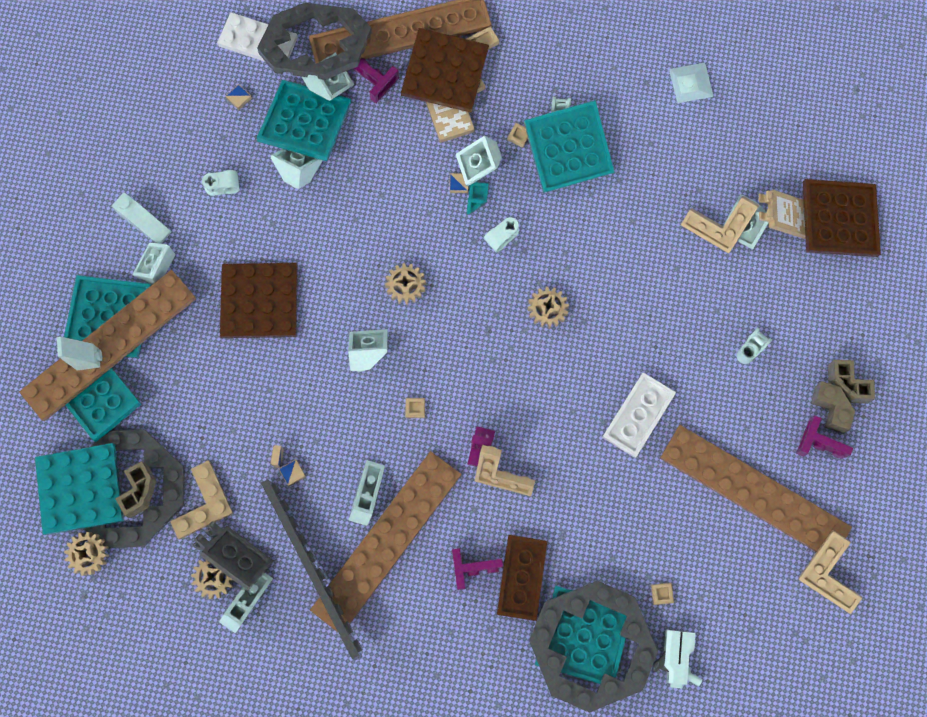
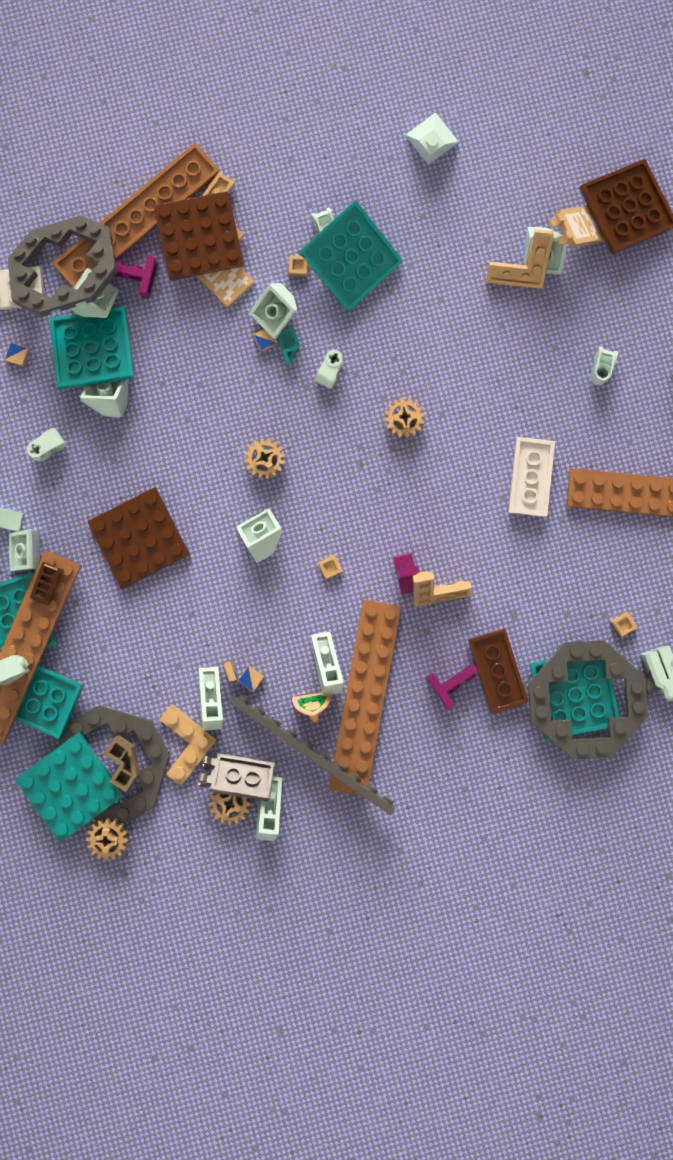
camera: 30 degrees left, 10 degrees up
(166, 297) = (39, 580): none -> reddish brown slope
(245, 472) = (210, 699): none -> light aqua slope
(333, 523) = (311, 705): none -> shield

